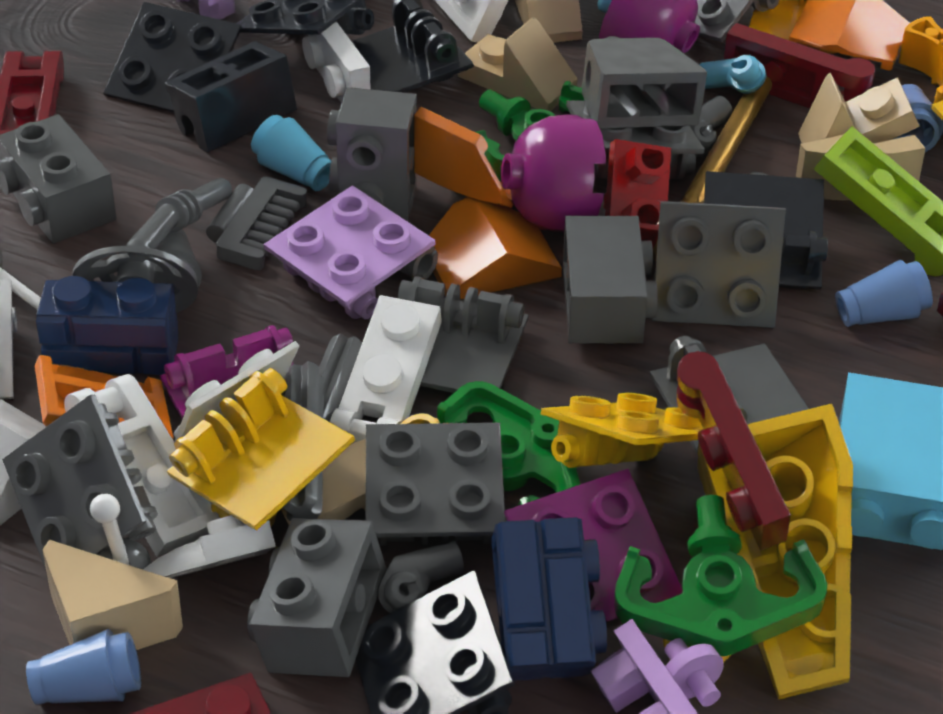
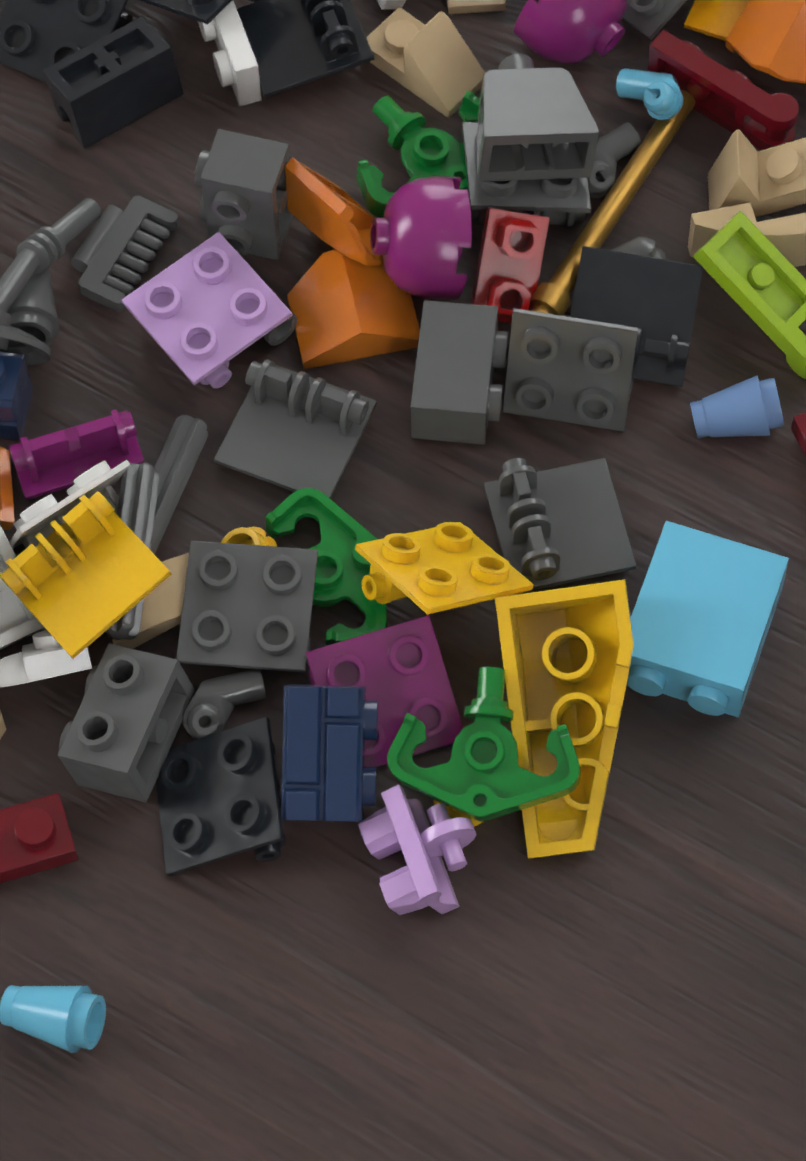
camera: 10 degrees right, 20 degrees up
(291, 152) = (166, 165): medium azure cone -> none
(388, 365) = (224, 466): white plate -> none
(729, 445) = (514, 622): dark red plate -> none

